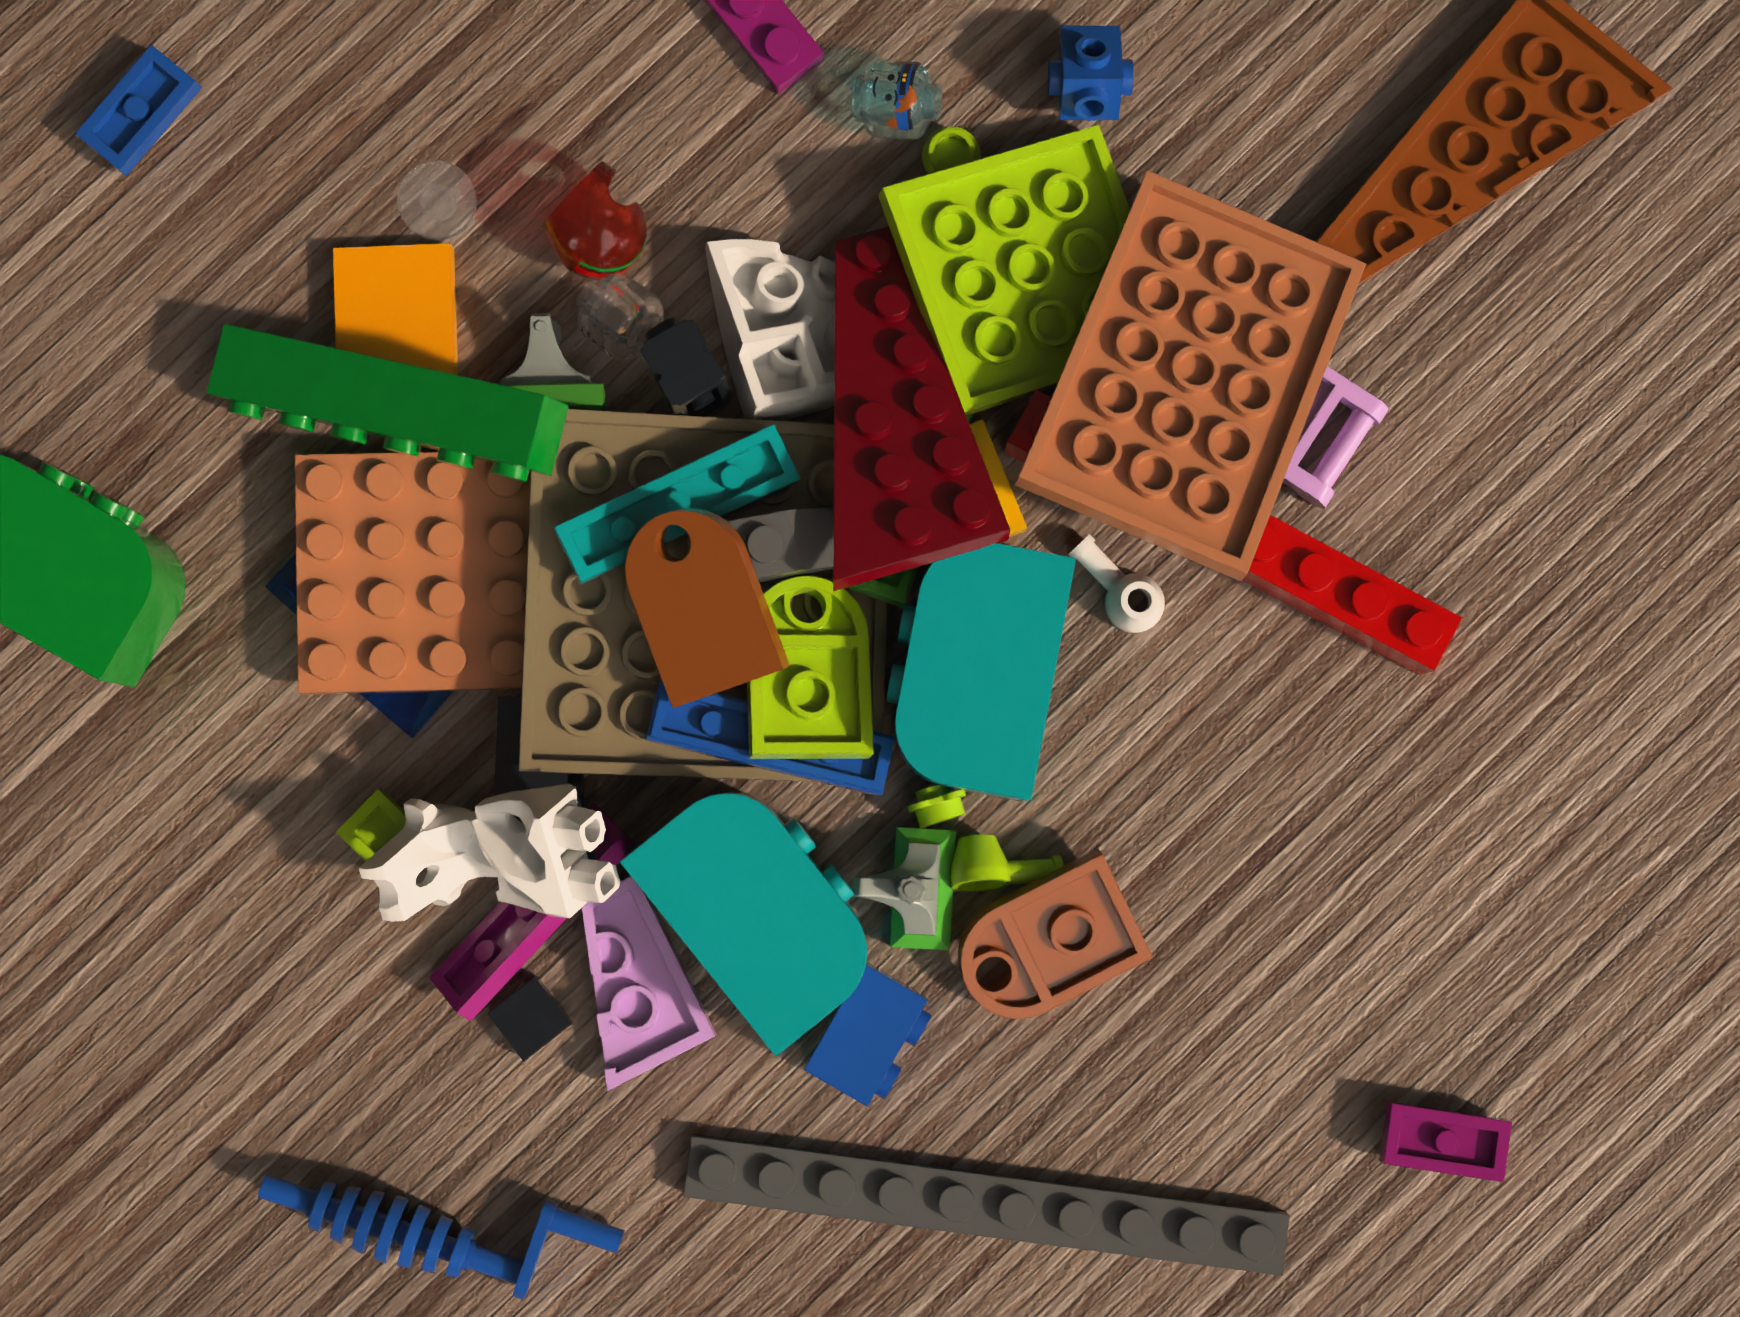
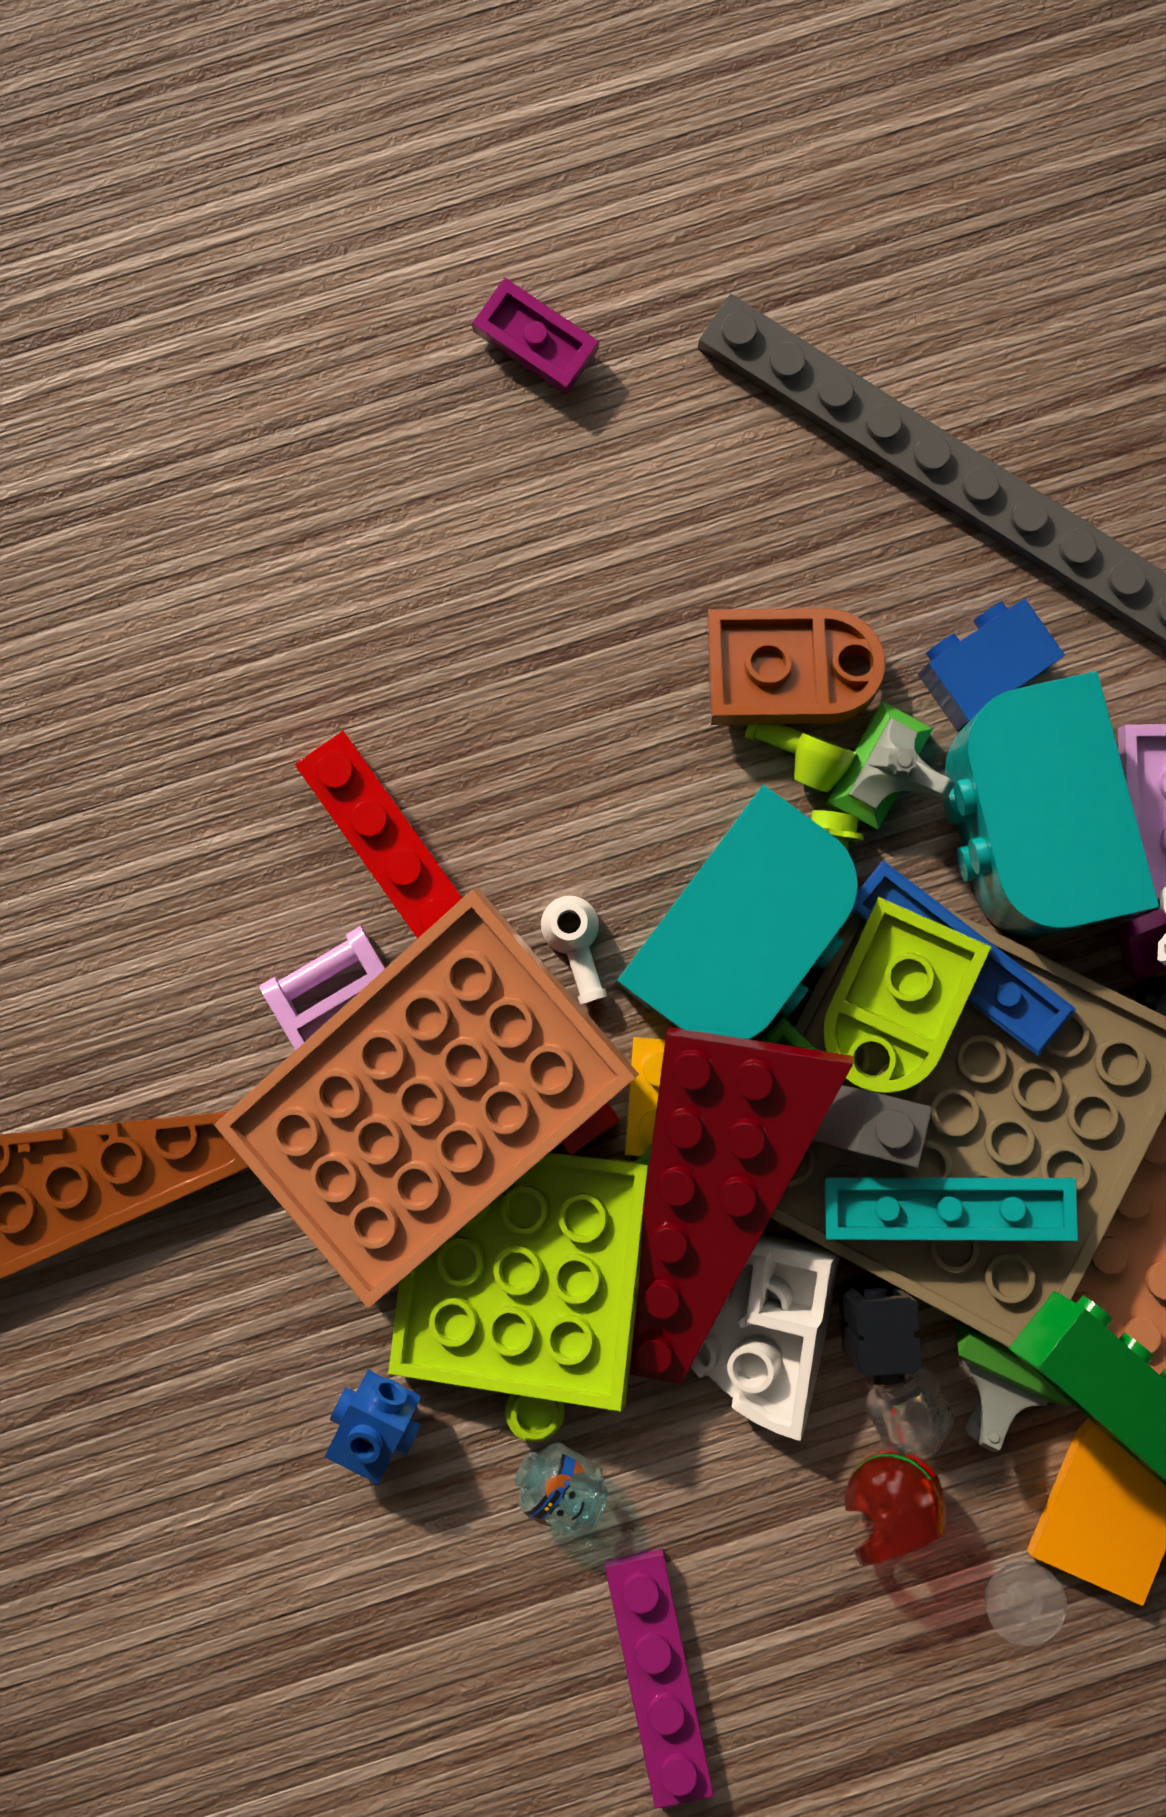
camera: 155 degrees left, 0 degrees up
(703, 610) = (979, 1099): dark orange tile -> none

